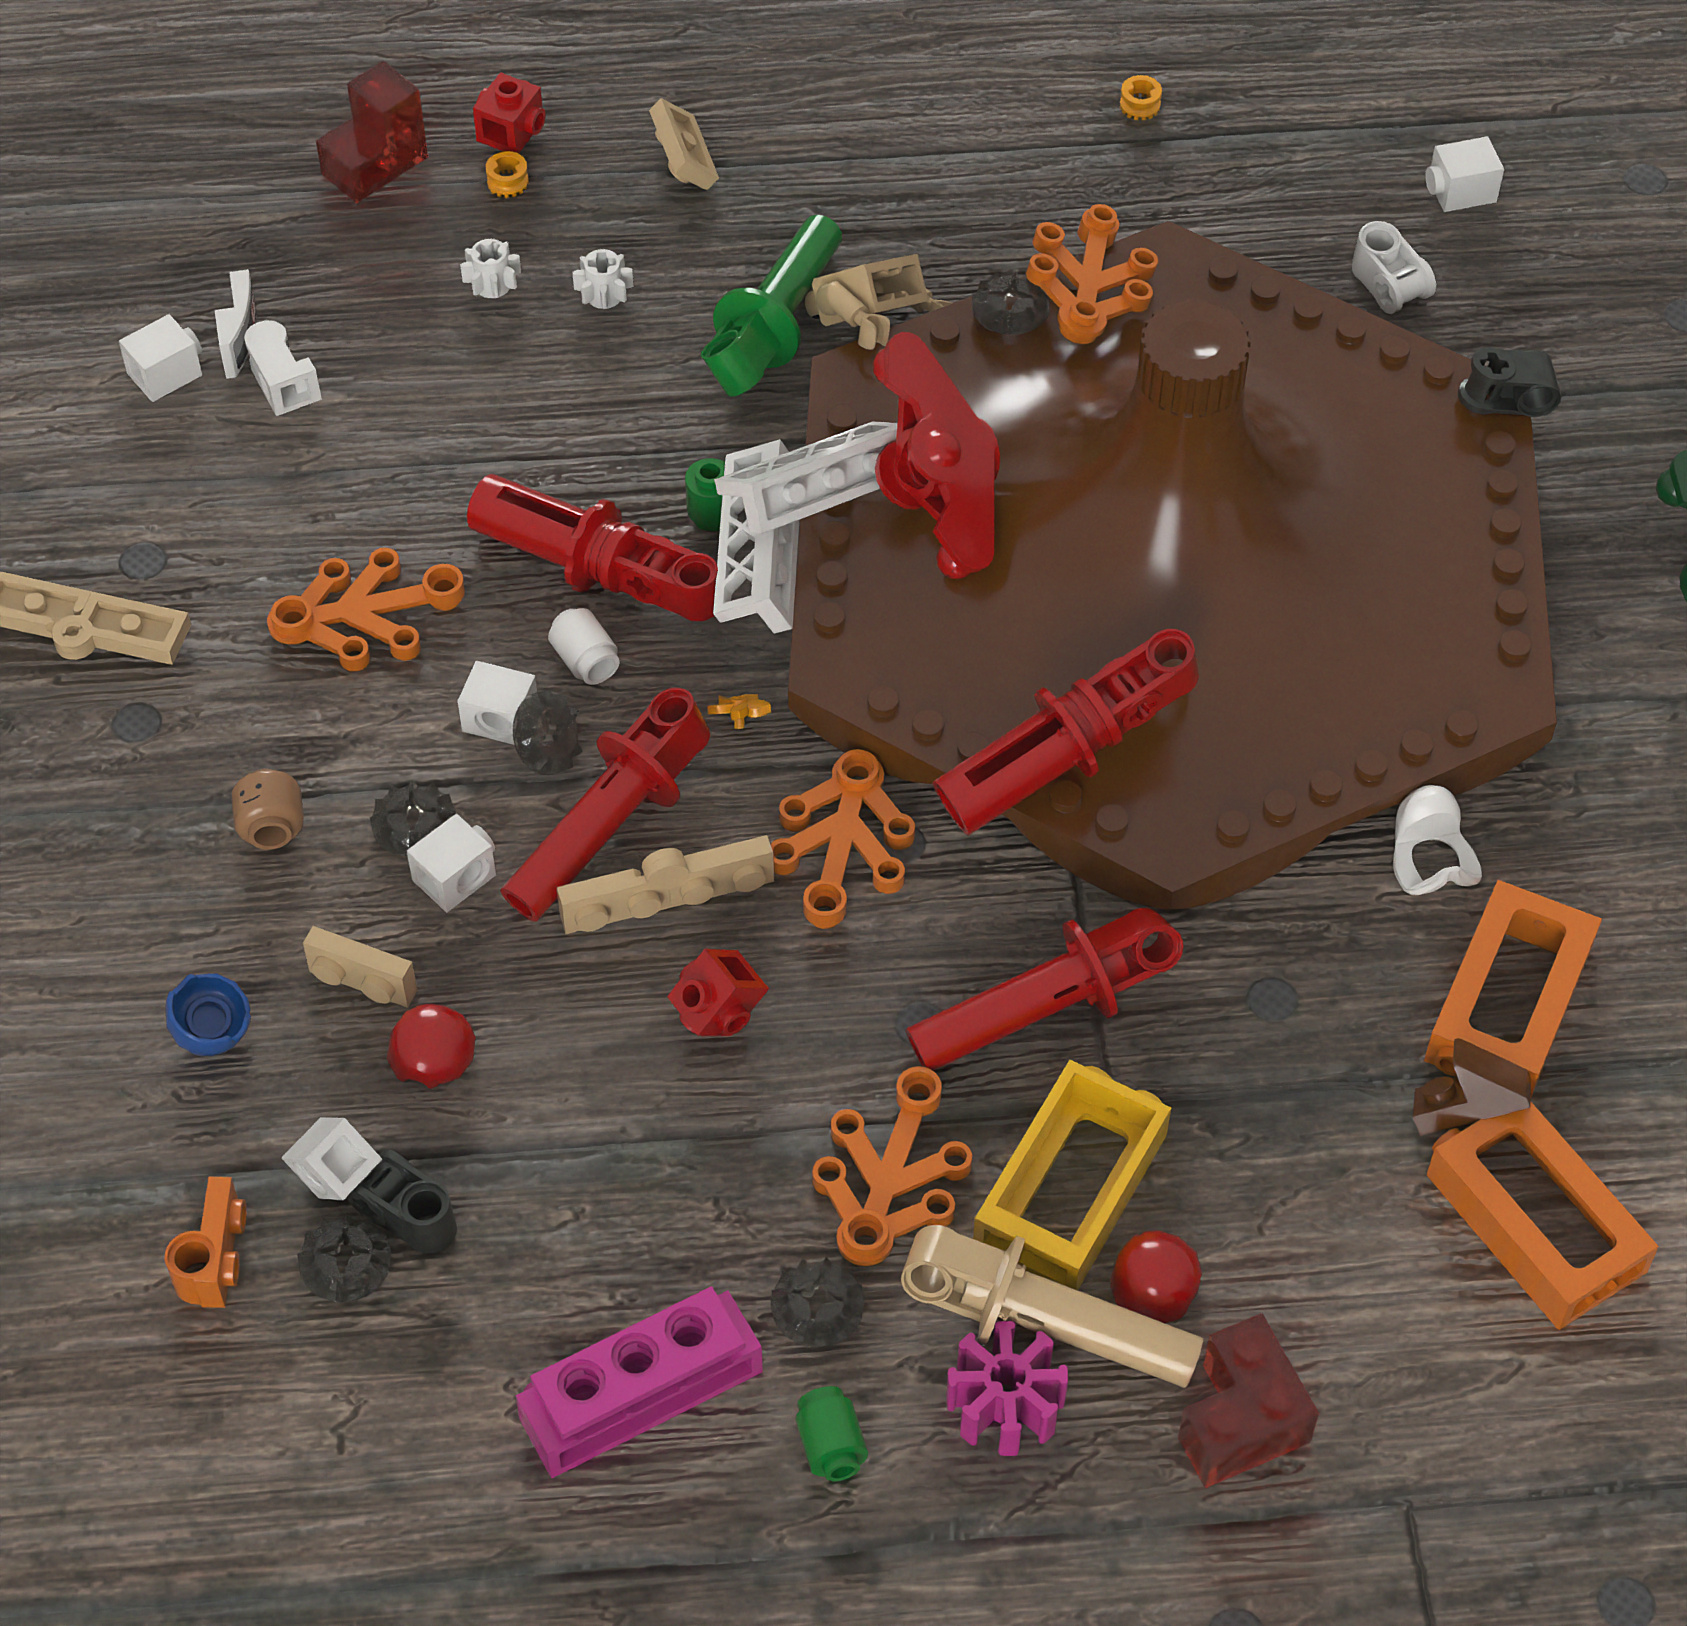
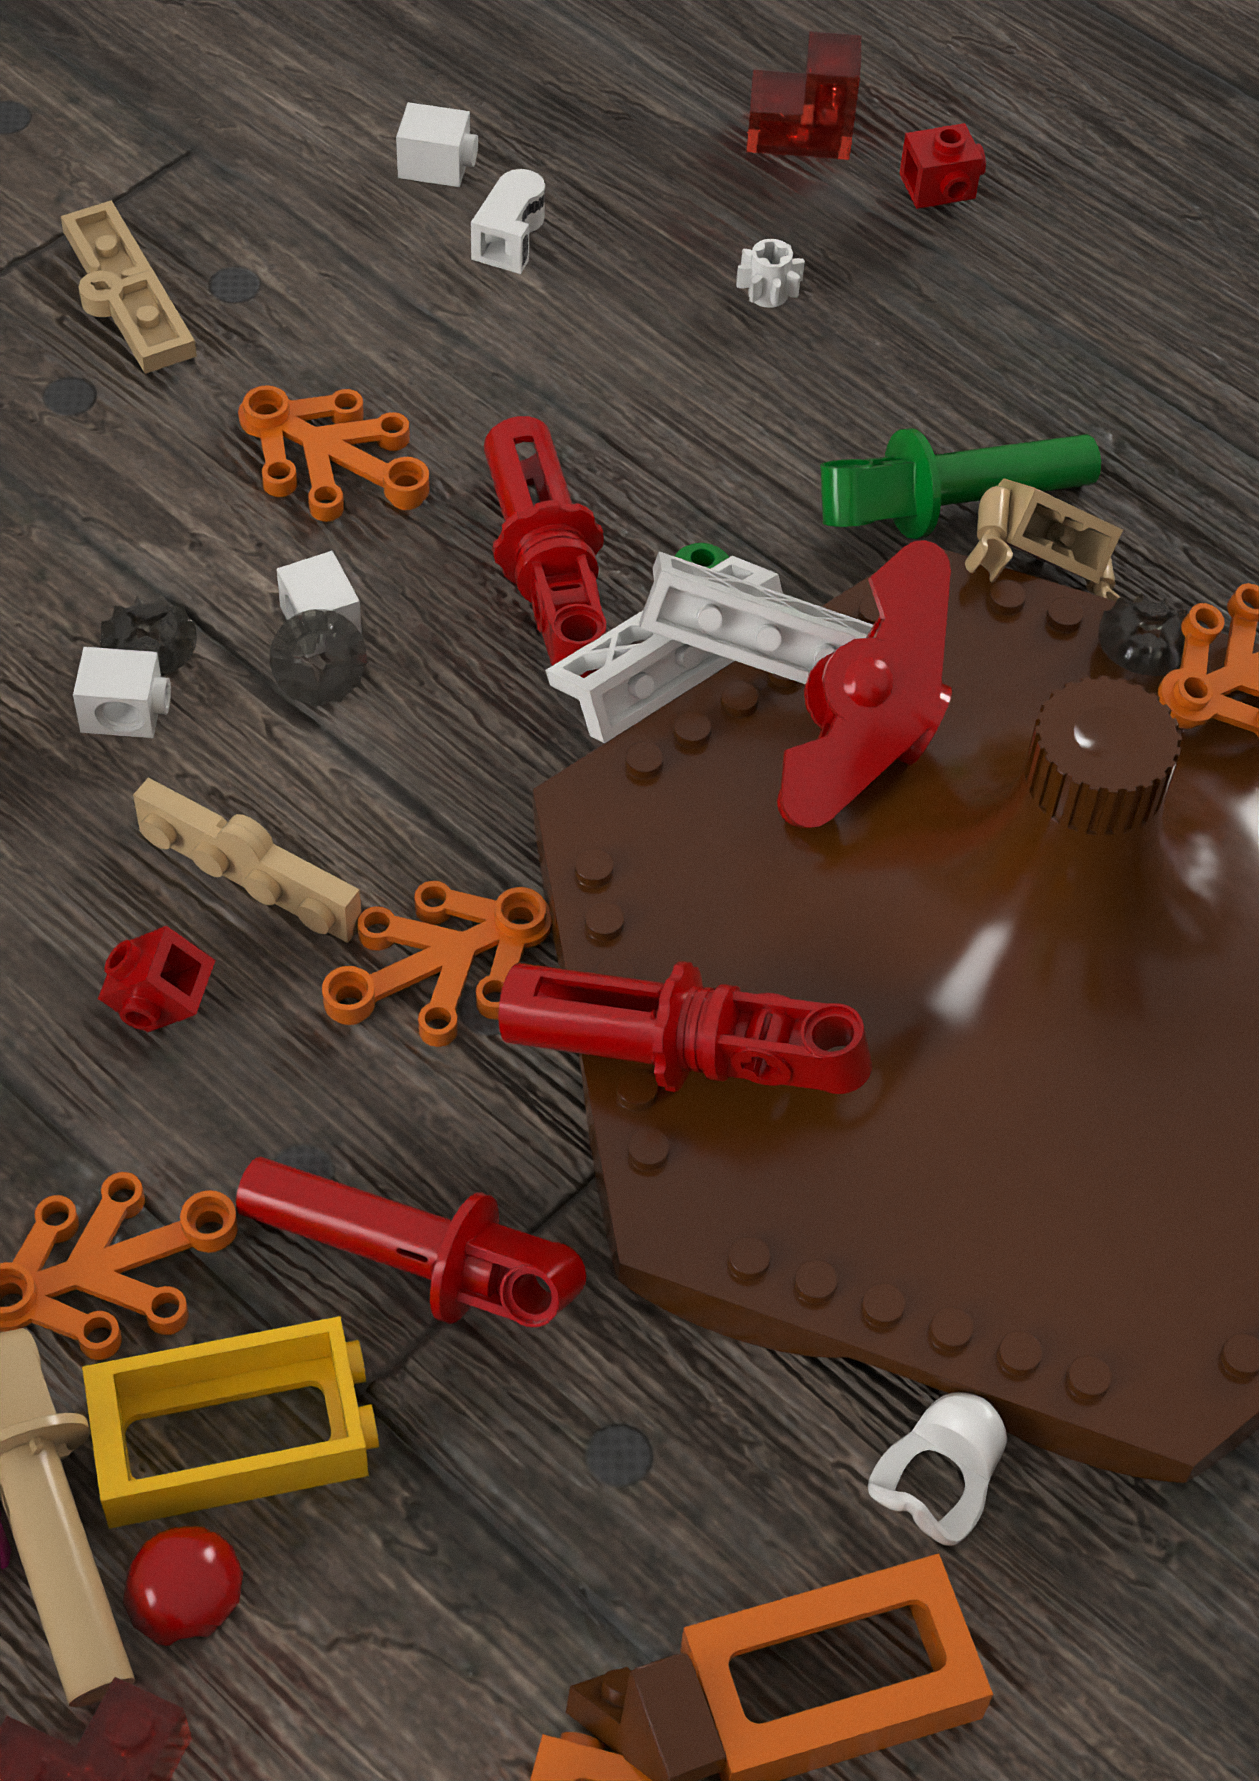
camera: 45 degrees right, 0 degrees up
(234, 322) = (543, 153): white slope -> none
(267, 808) = (47, 530): medium nougat head -> none
(507, 184) = (884, 226): light orange bush -> none
(584, 645) = (444, 618): white brick -> none
(603, 279) = (849, 351): white gear -> none
(638, 768) = (343, 741): red piece -> none
(683, 145) = (1061, 299): tan plate -> none
(740, 707) = (500, 777): light orange plant -> none

